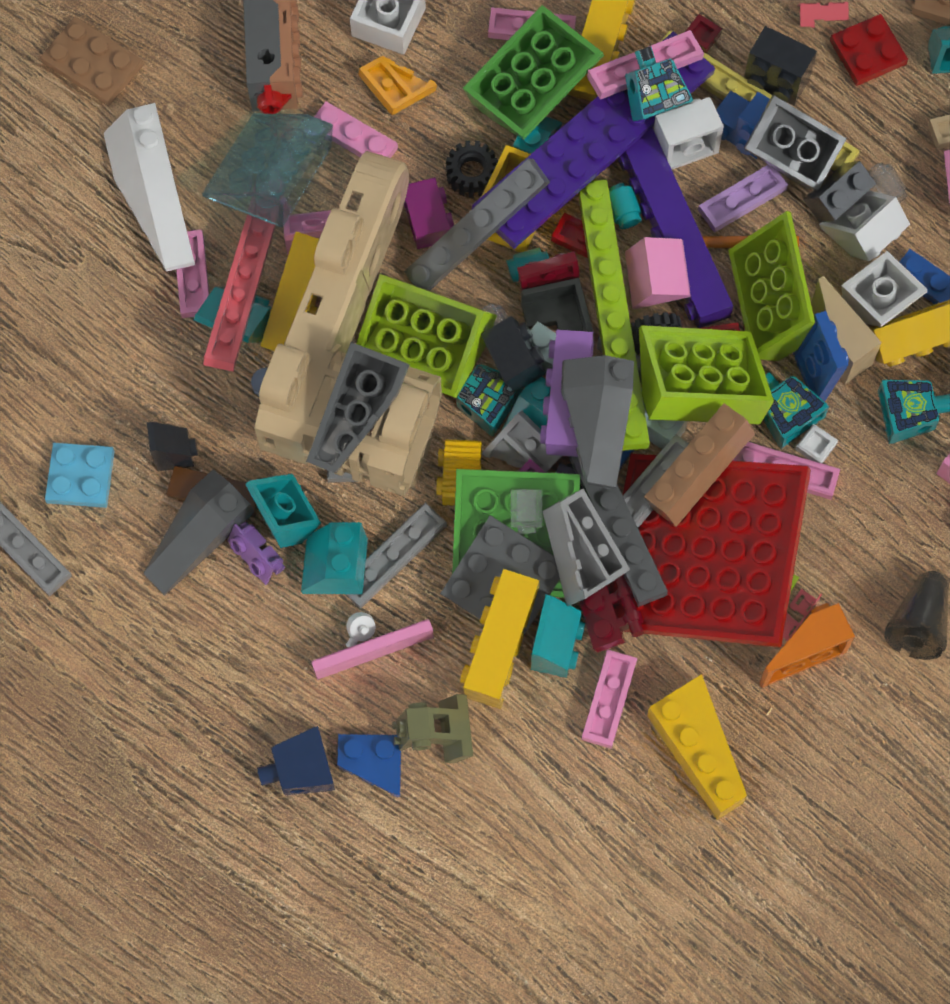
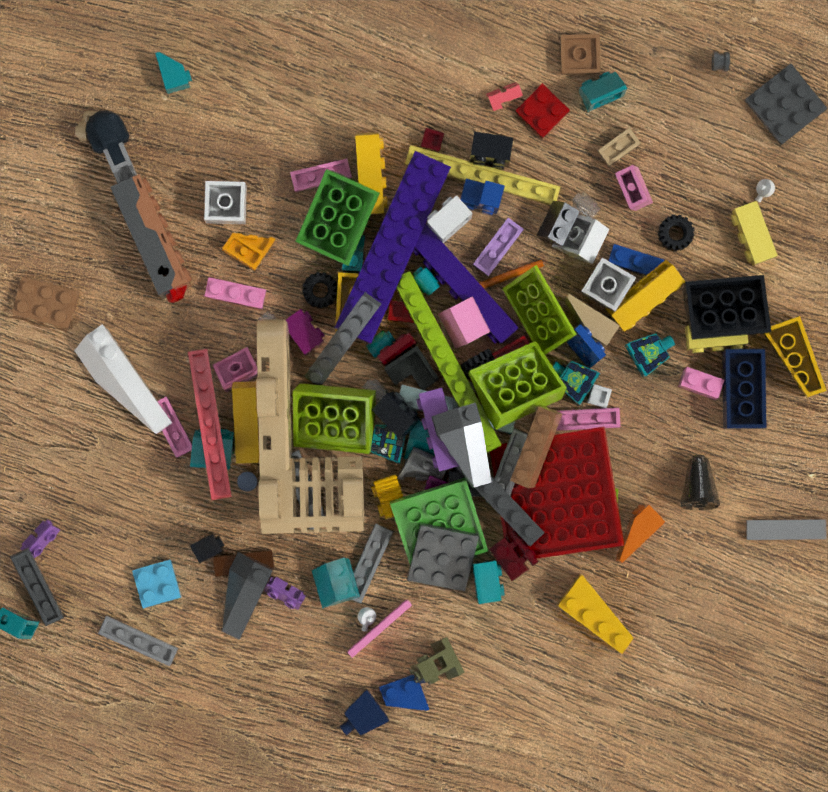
camera: 25 degrees left, 15 degrees up
(271, 165) = (191, 338): clear light blue slope -> none
(284, 508) = (292, 563): teal slope -> none
(358, 400) = (322, 499): dark grey wedge -> none
(500, 638) = (455, 598): yellow wedge -> none
(526, 509) = (442, 514): clear brick -> none
(582, 547) = (484, 527): light grey wedge -> none
(609, 699) = (531, 605): bright pink plate -> none
(610, 77) = (407, 187): bright pink plate -> none
(654, 86) = (420, 204): torso -> none
(794, 144) = (521, 206): dark grey slope -> none
(801, 608) = (625, 504): coral piece -> none

